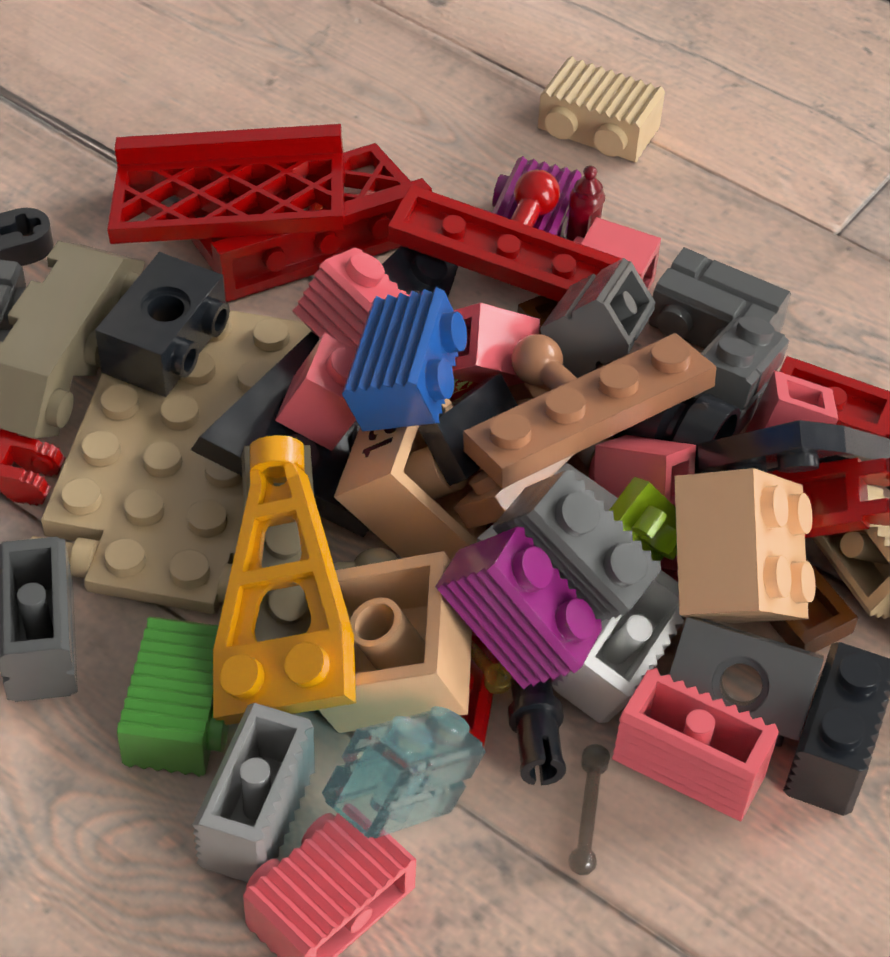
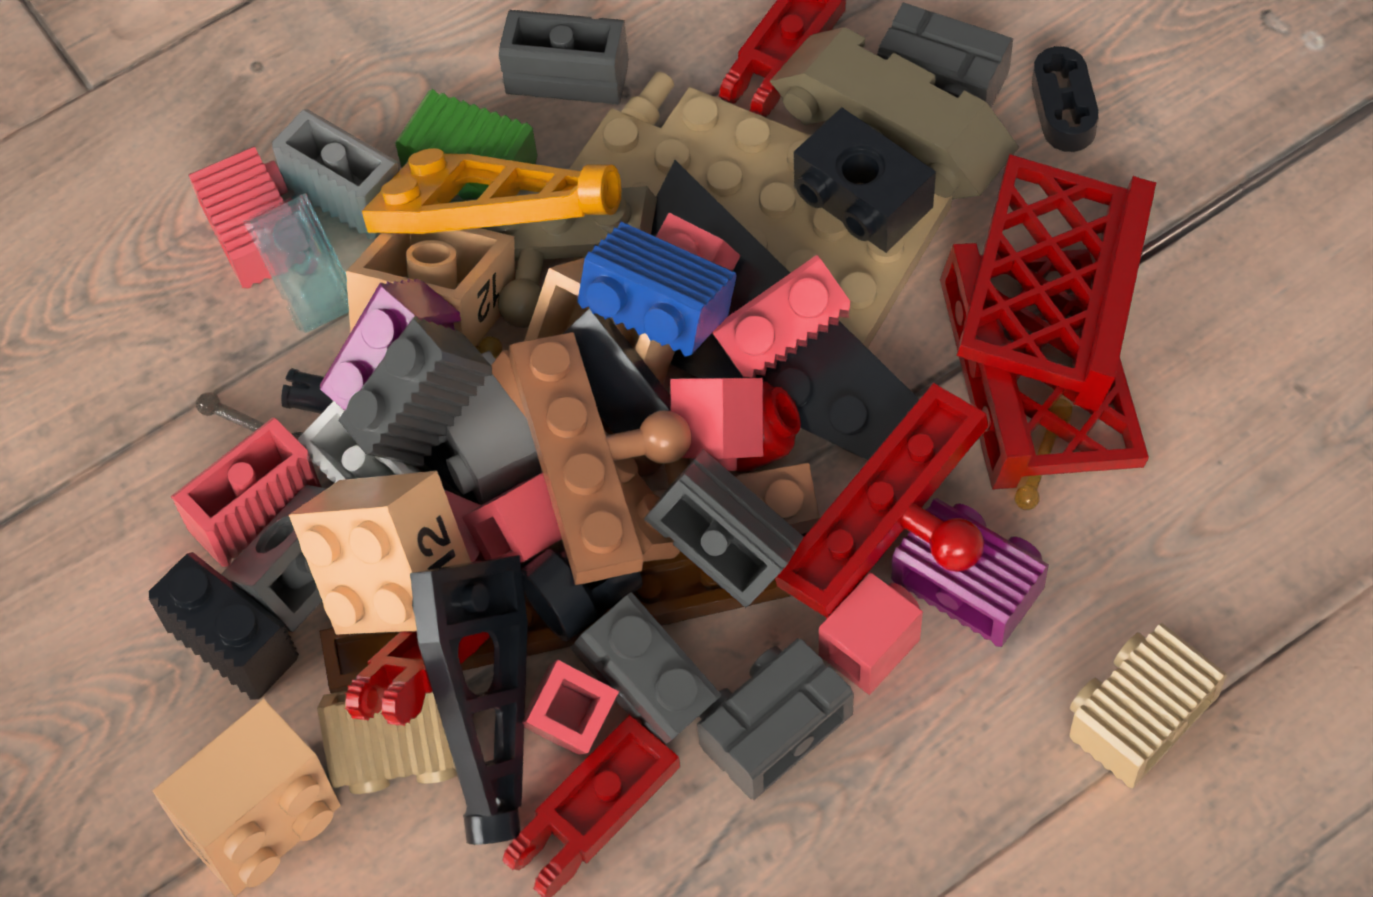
camera: 115 degrees right, 10 degrees up
(585, 203) = (943, 613): dark red piece -> none
(648, 517) = (456, 470): lime tile -> none

